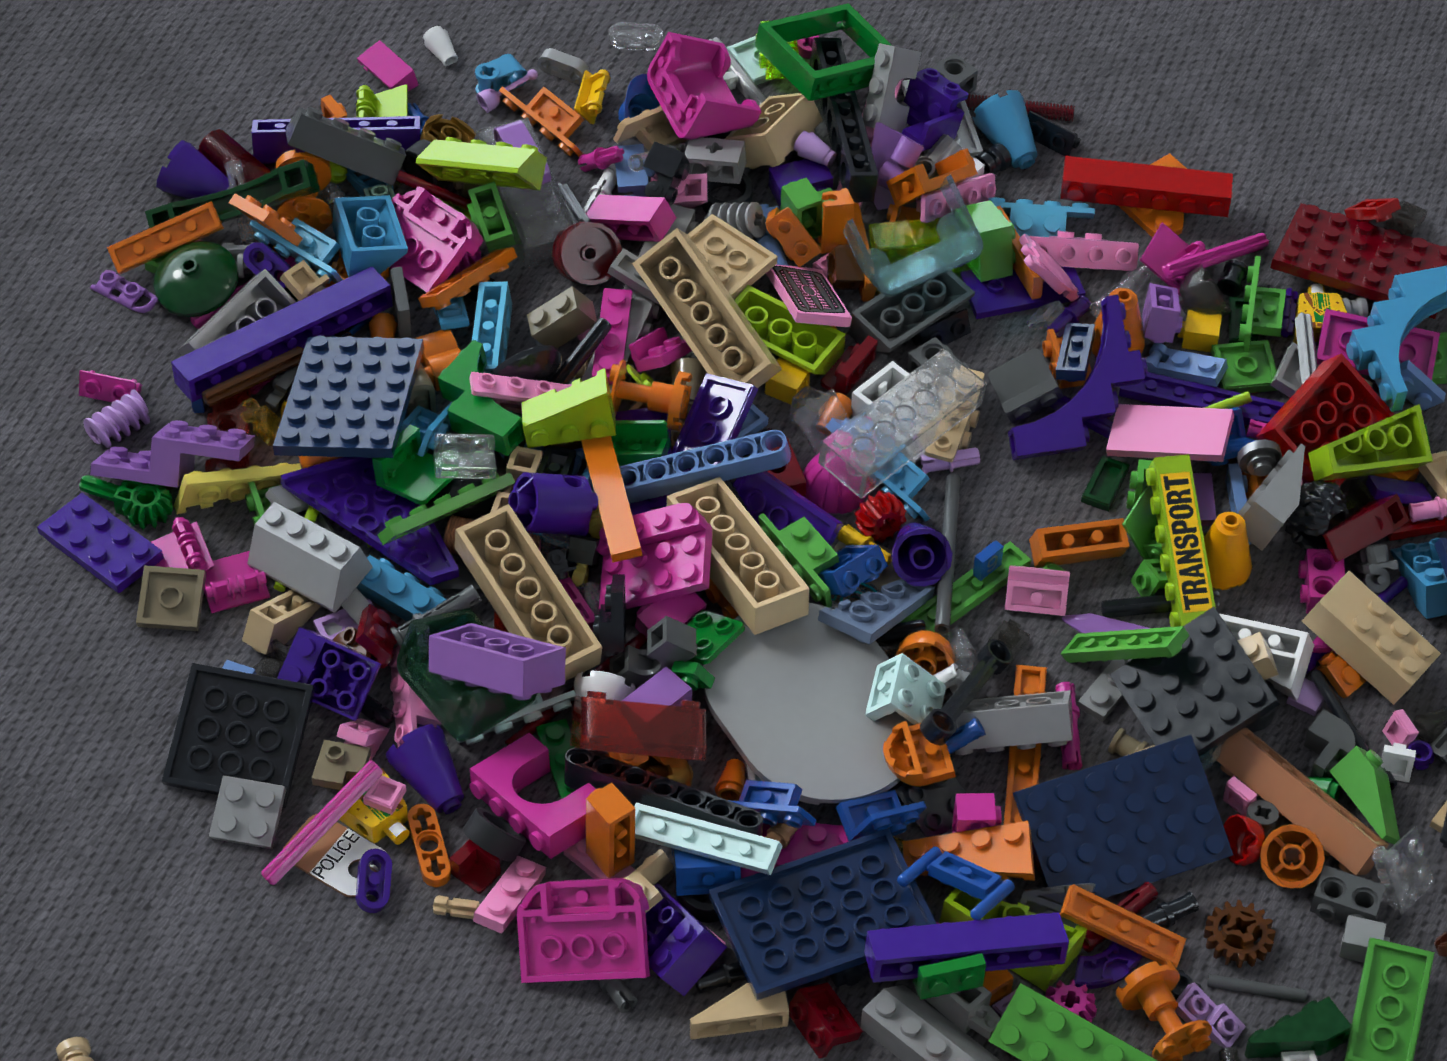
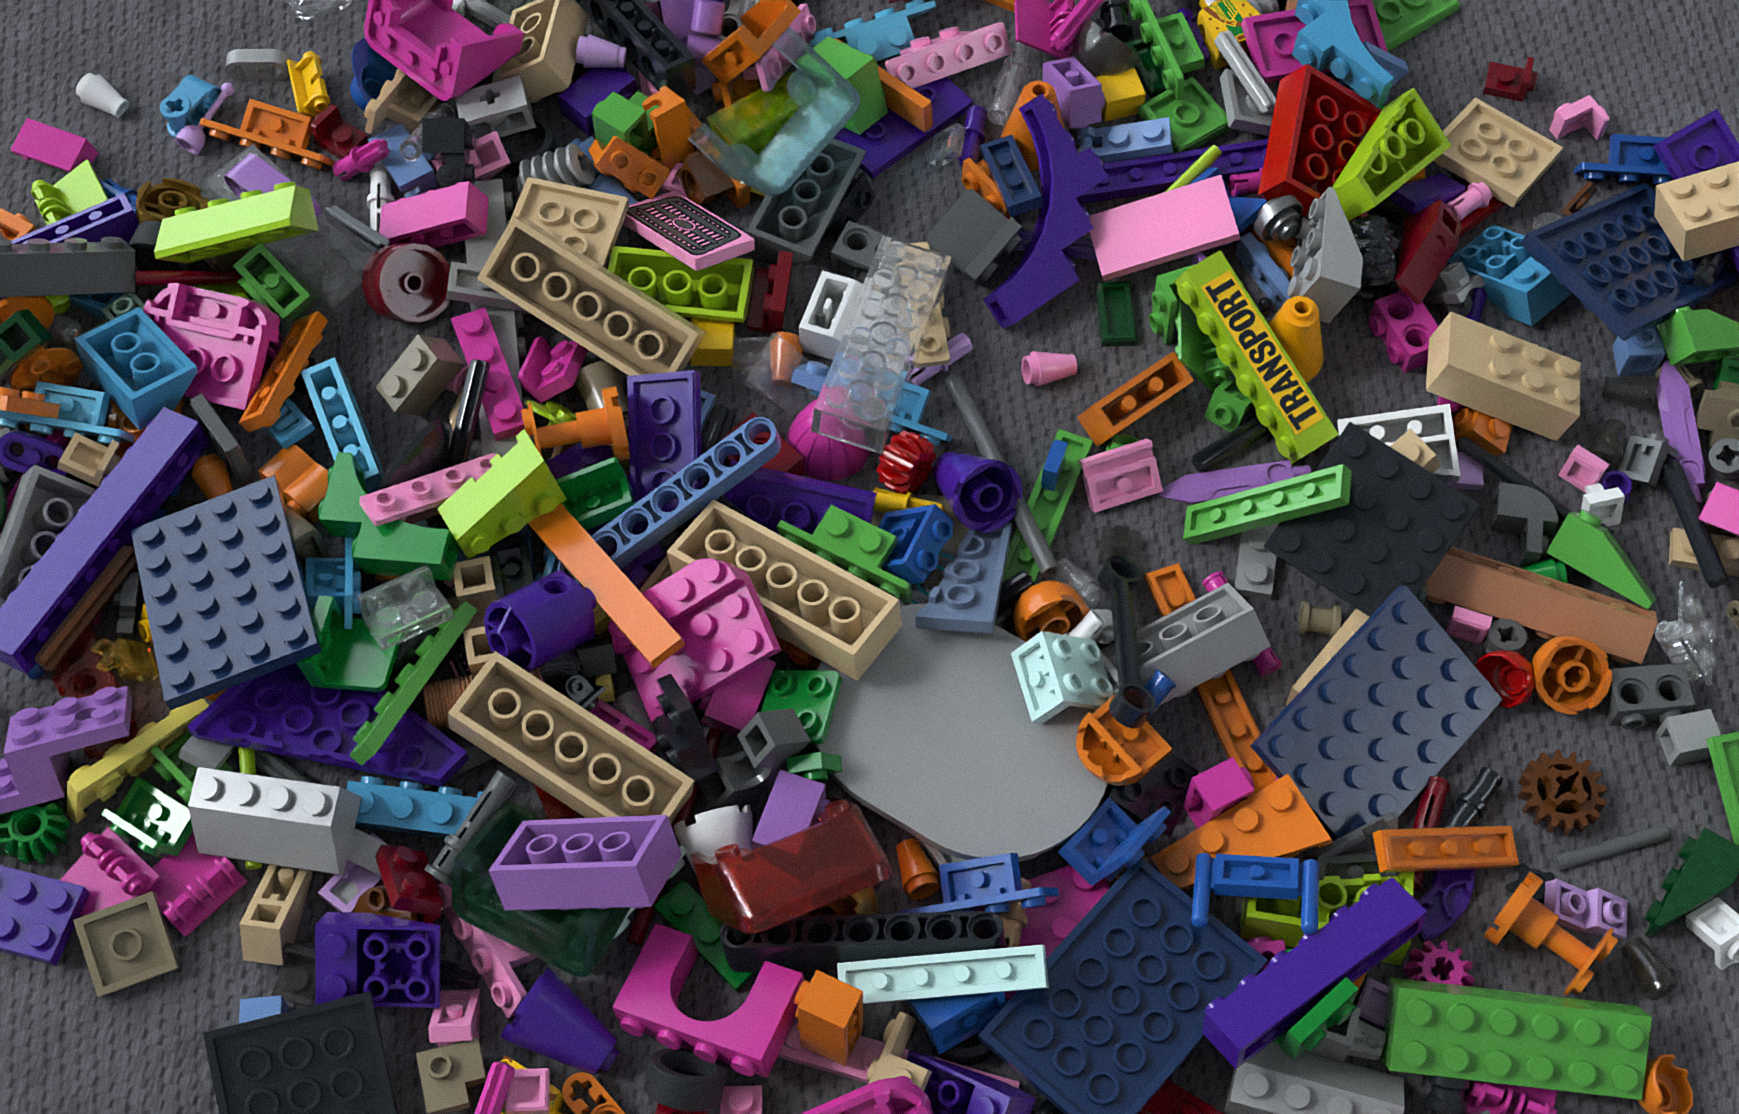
camera: 25 degrees left, 10 degrees up
(229, 527) = (153, 818): none -> green bracket
(593, 133) = (335, 133): none -> dark red bracket
(1029, 498) = (1047, 367): none -> bright pink cone
(1047, 268) = (928, 90): bright pink tile -> none

